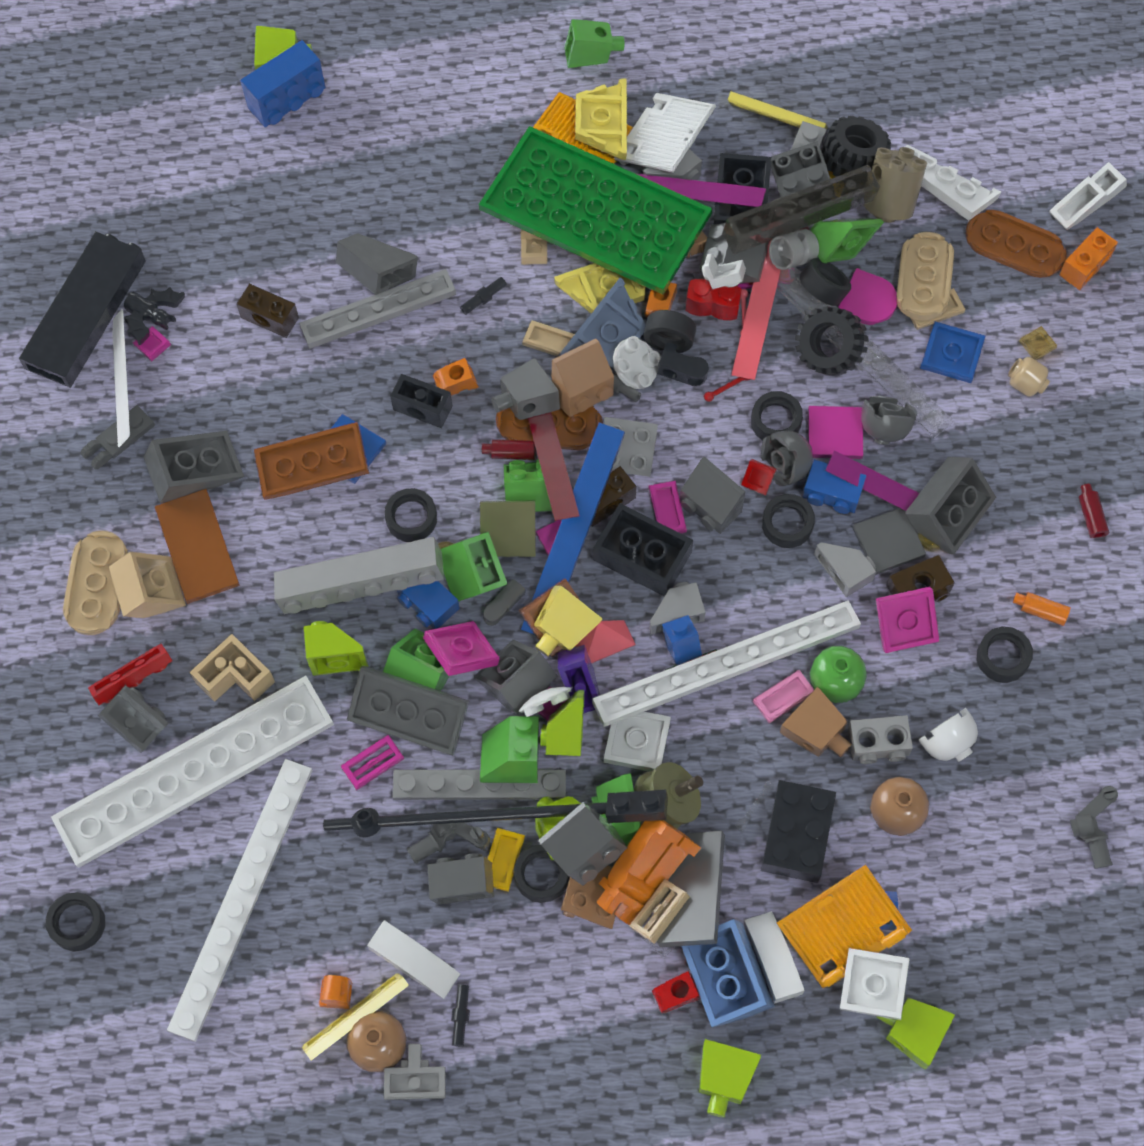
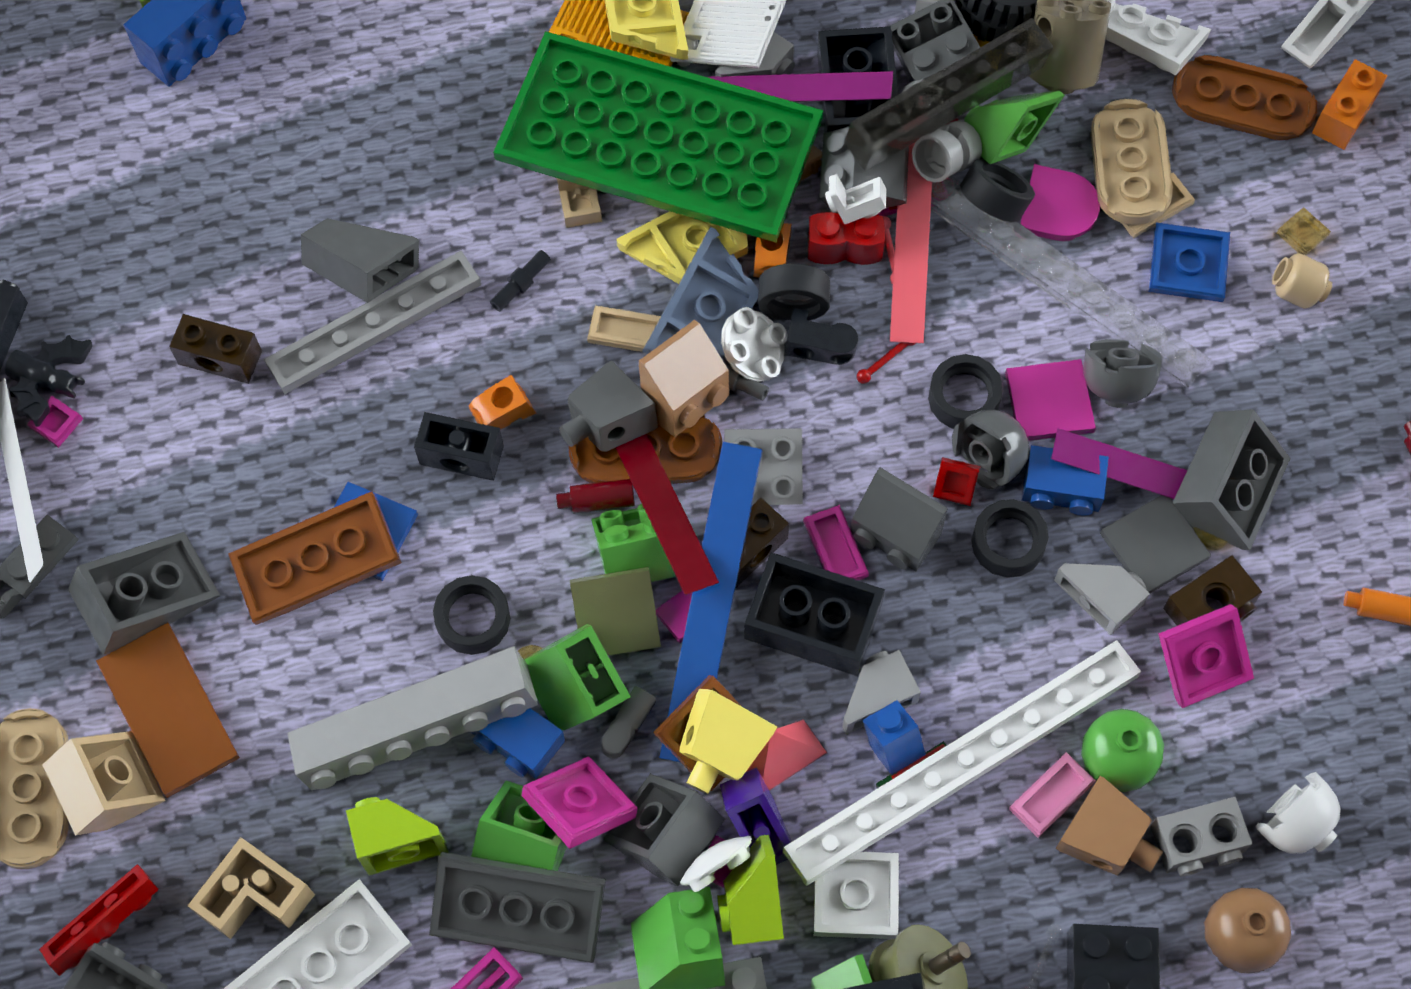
camera: 10 degrees left, 0 degrees up
(811, 336) = (992, 265): black tyre -> none
(1014, 636) = (1367, 660): black tyre -> none

